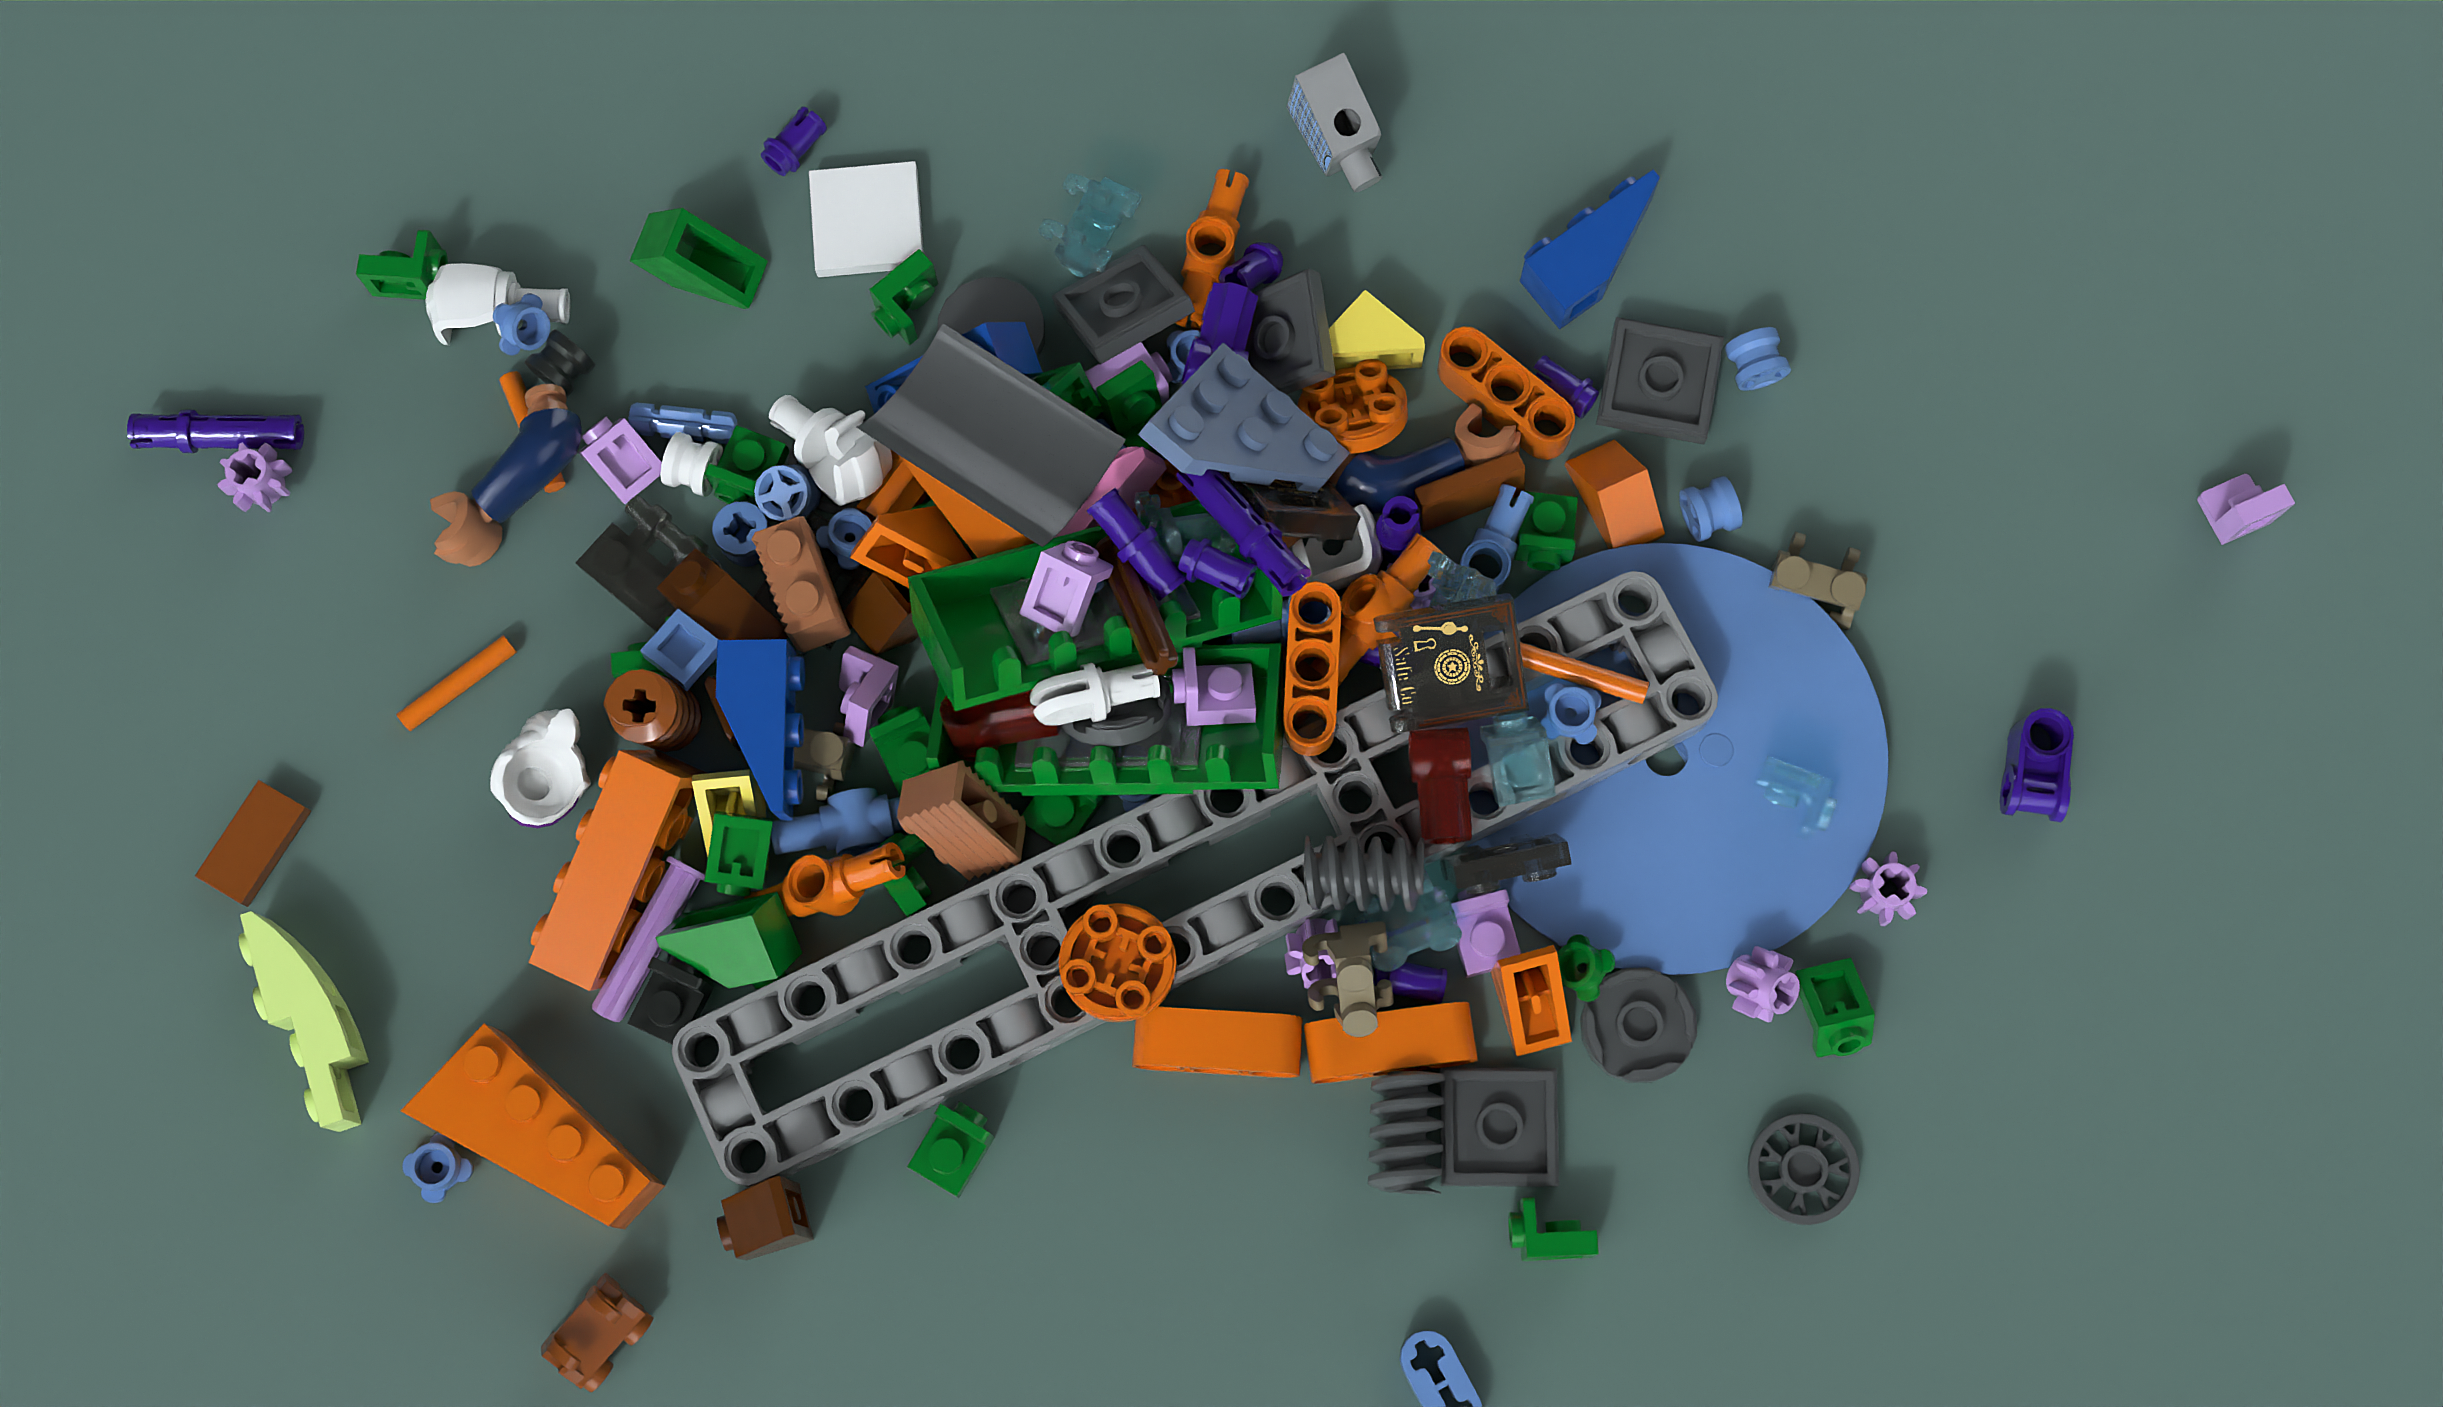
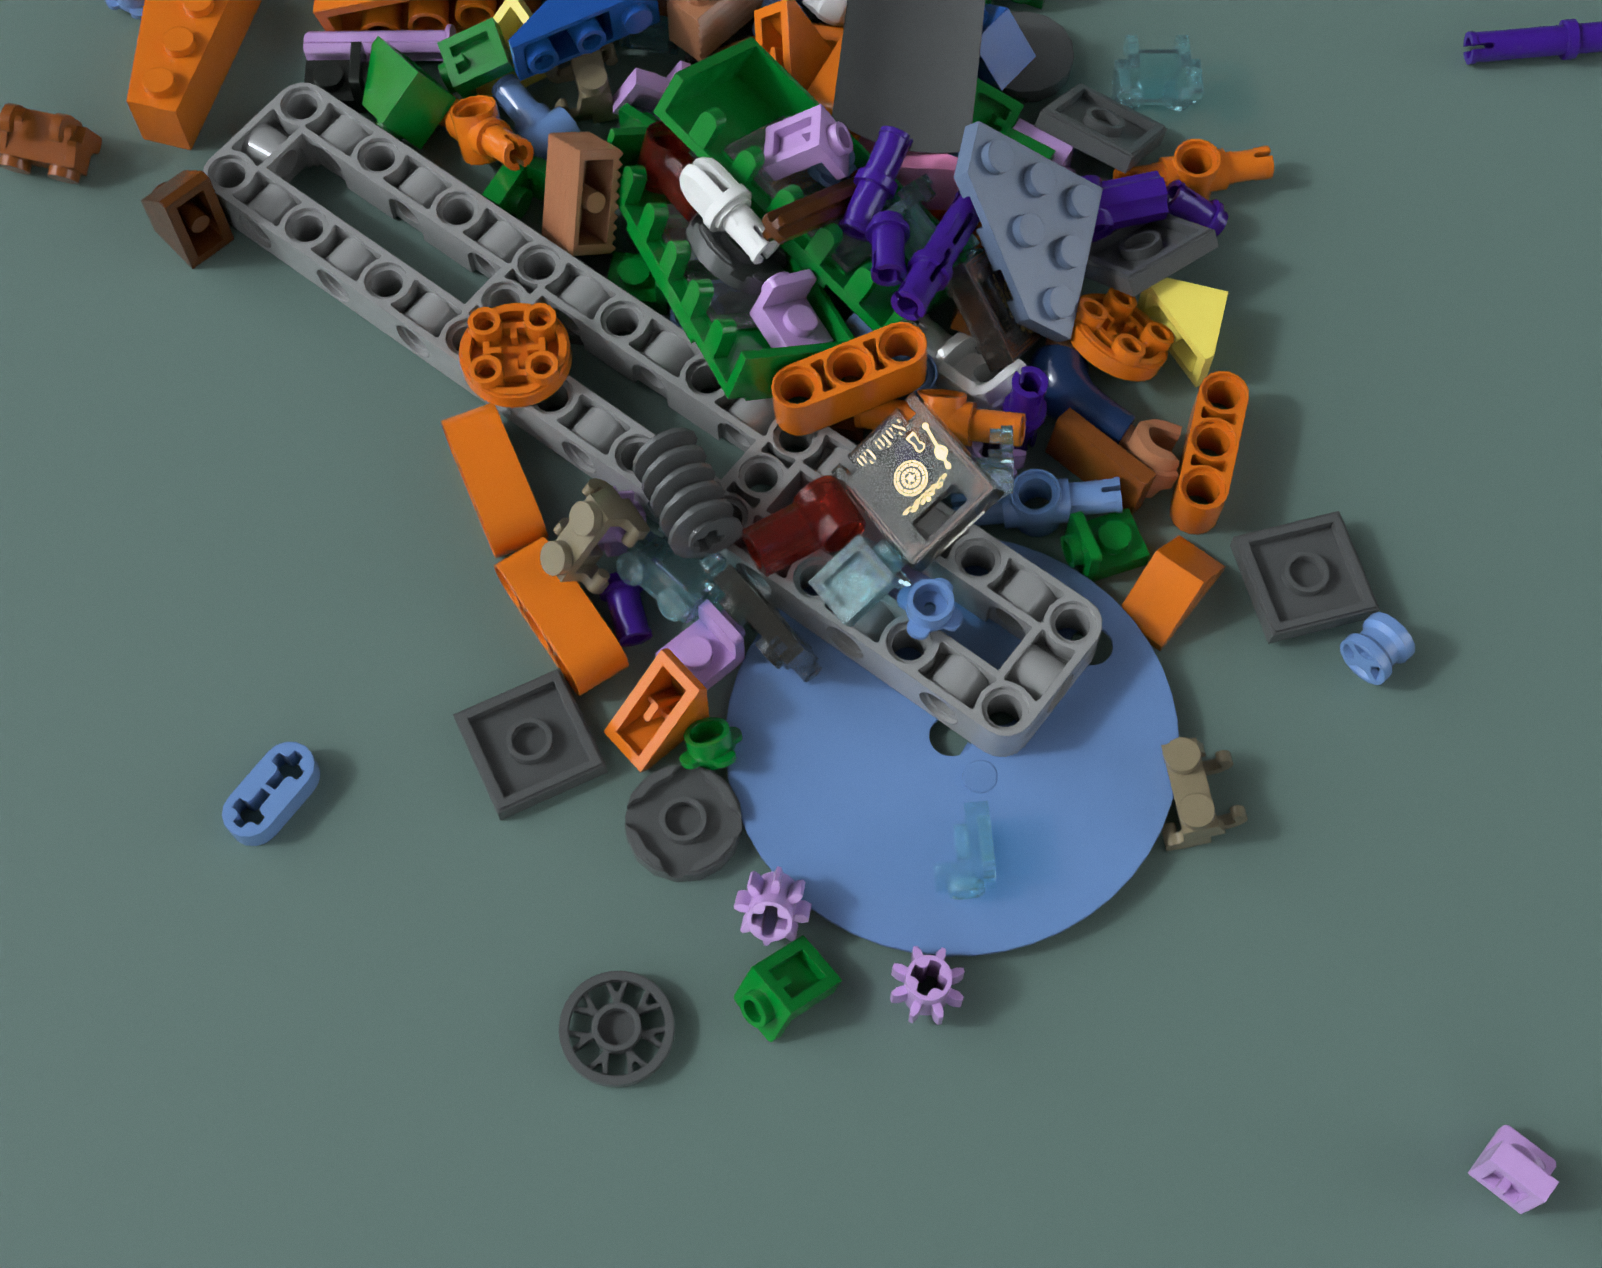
camera: 60 degrees right, 10 degrees down
(952, 1148) = (310, 327): green bracket -> none
(1336, 121) = (1369, 206): light grey torso -> none
(1405, 1132) = (483, 658): dark grey piece -> none
(1560, 1241) = (437, 814): green bracket -> none
(1574, 390) = (1245, 508): dark purple pin -> none
(1580, 263) = (1387, 466): blue slope -> none
(1583, 673) = (974, 603): orange piece -> none
(1710, 508) = (1206, 669): medium blue wheel -> none
(2038, 778) = (1114, 1079): dark purple piece -> none

